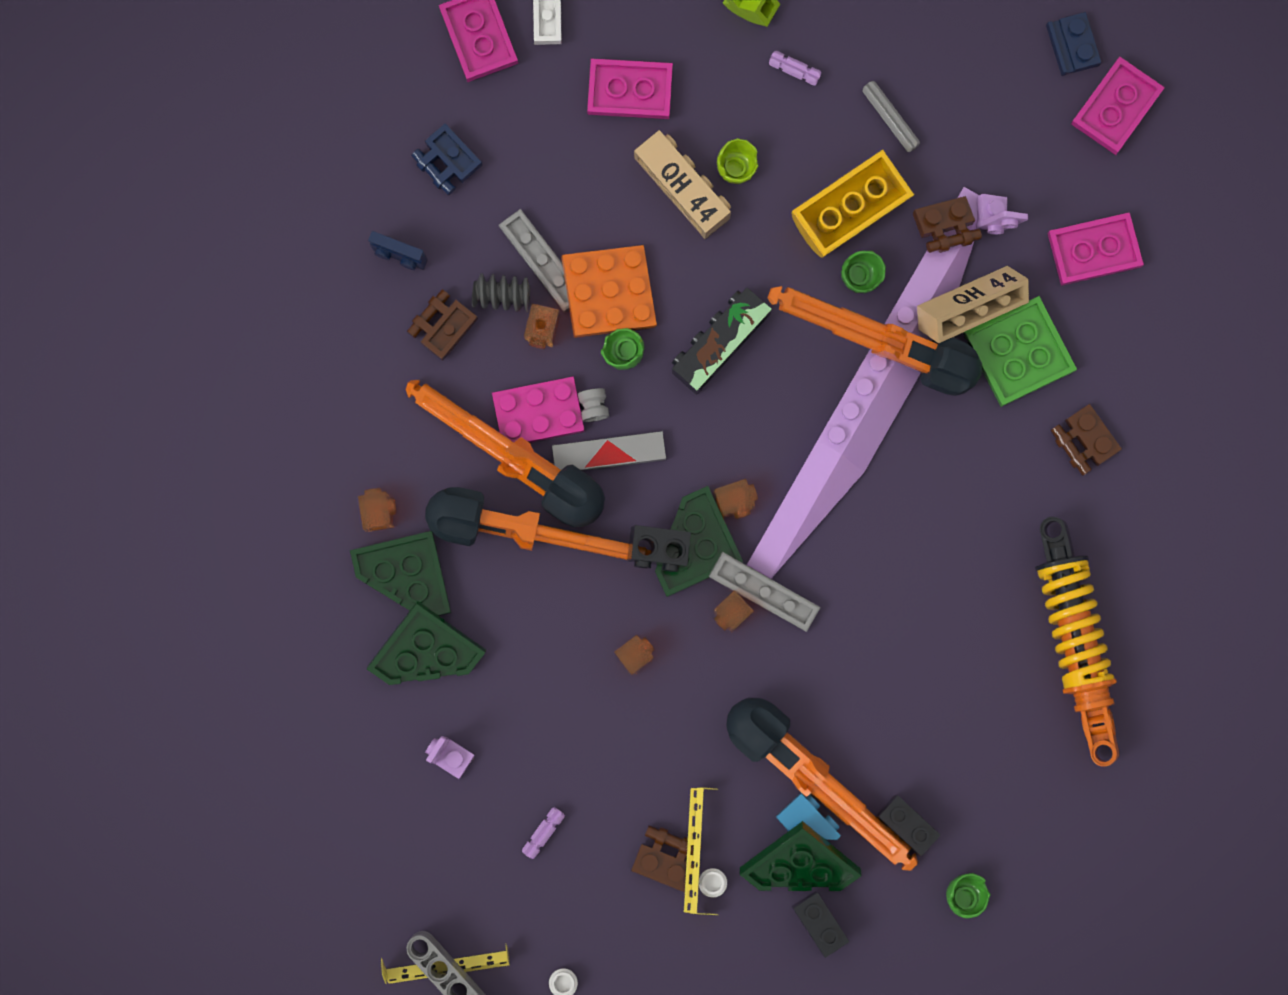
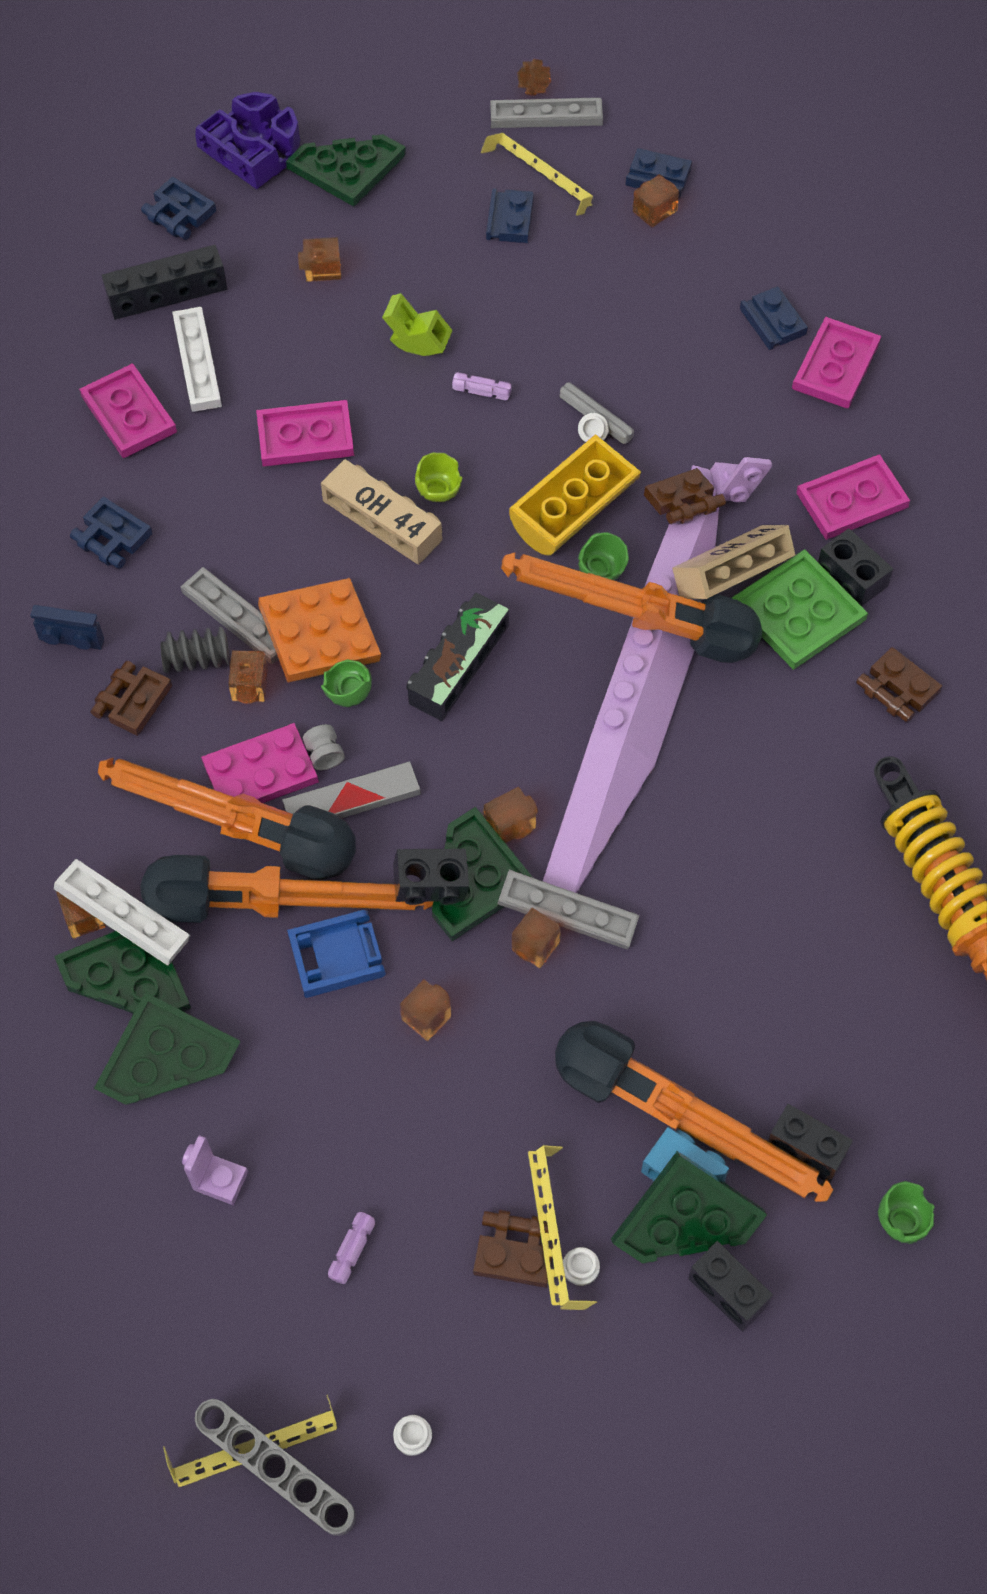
camera: 15 degrees left, 20 degrees down
(407, 529) = (121, 912): none -> white plate
(577, 589) = (342, 950): none -> blue container
(884, 133) = (591, 425): none -> white plate
(1084, 318) = (858, 563): none -> black brick

